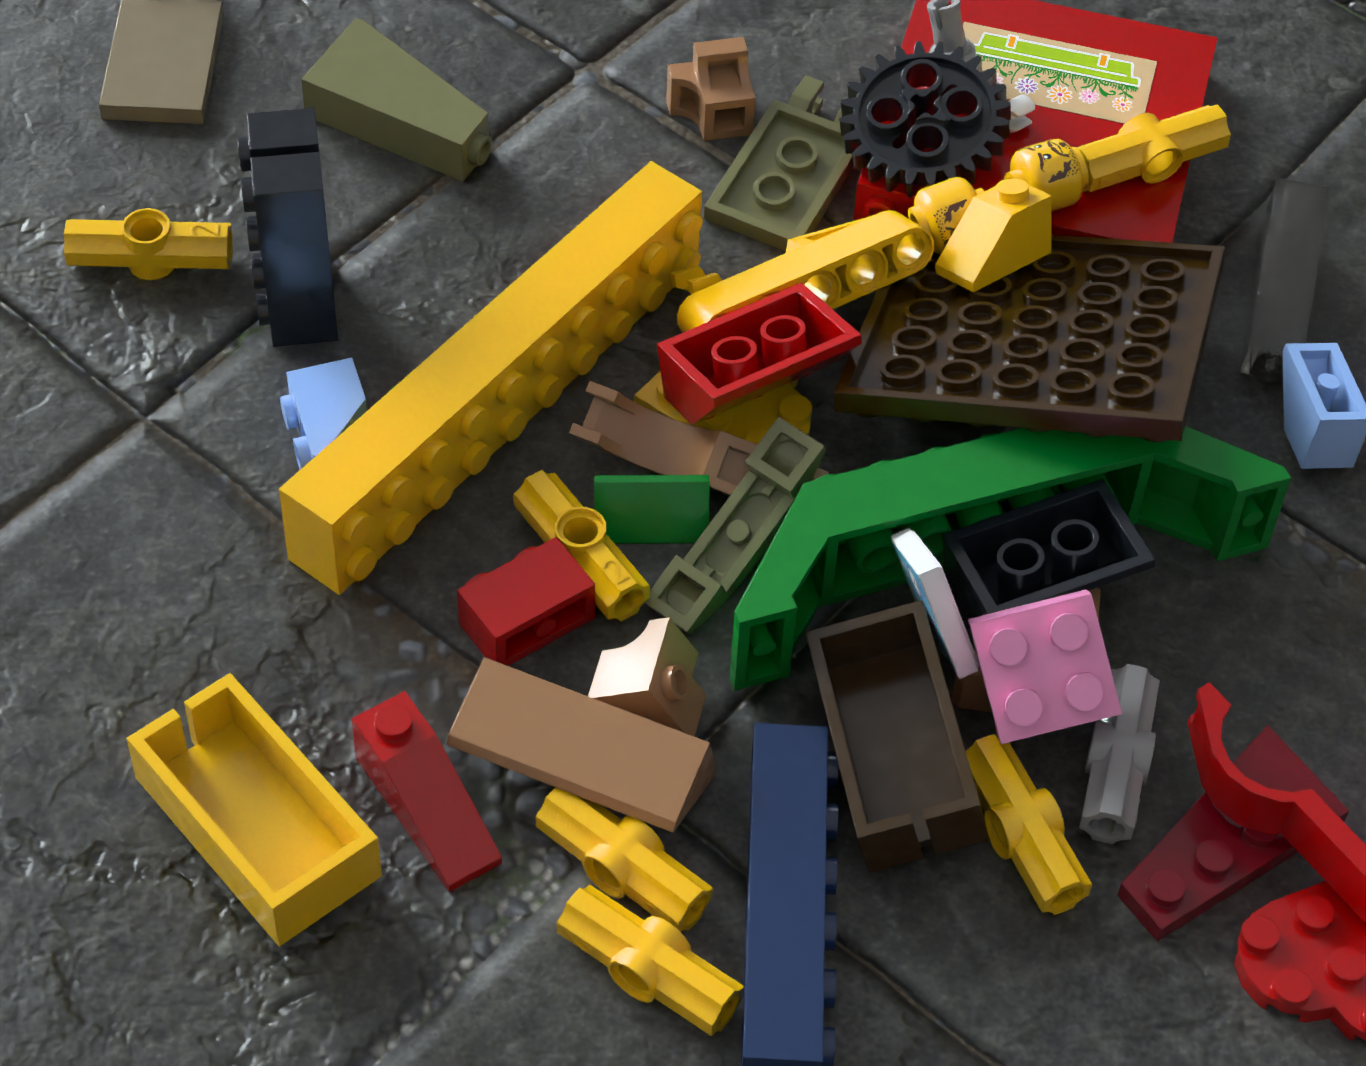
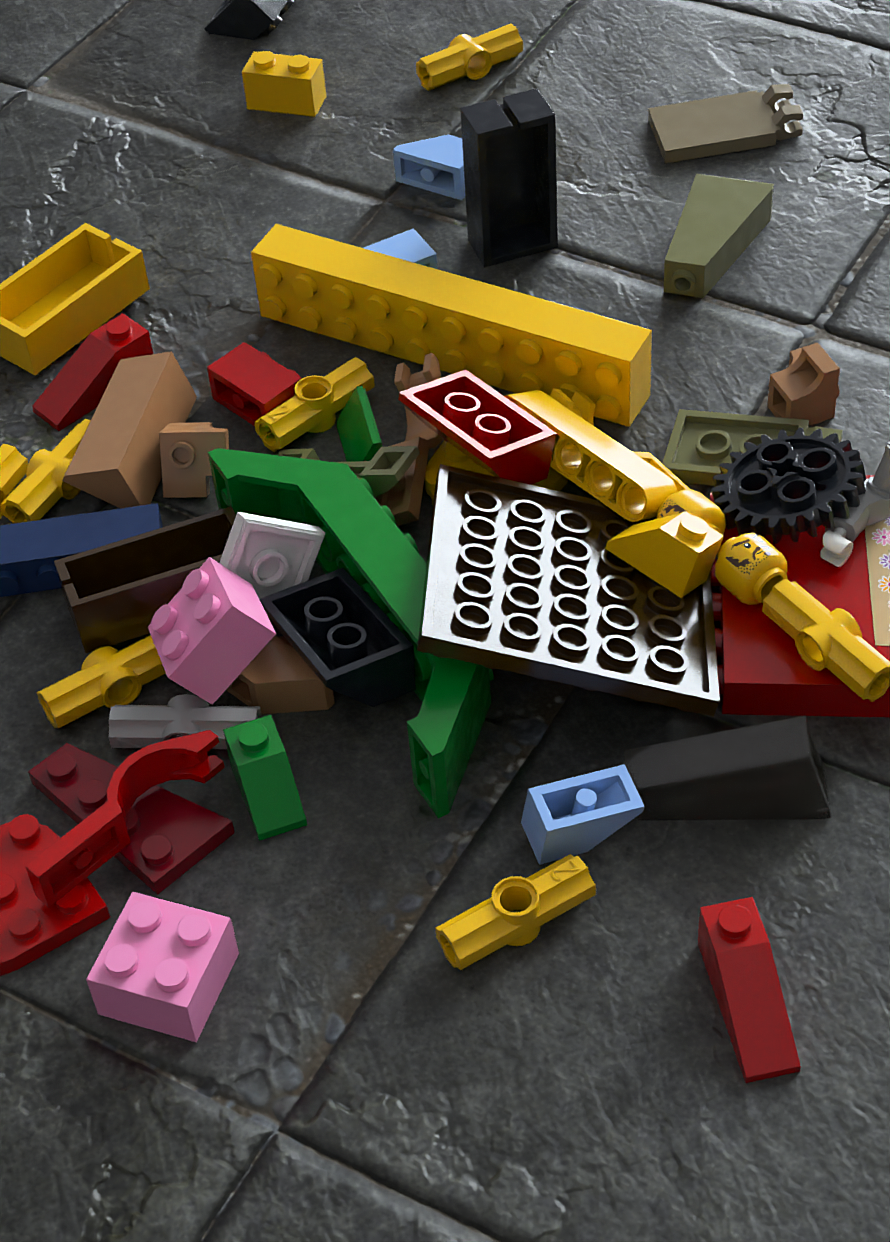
camera: 85 degrees right, 5 degrees down
(127, 330) = (432, 165): none -> light blue slope
(1192, 662) = (264, 777): none -> green slope

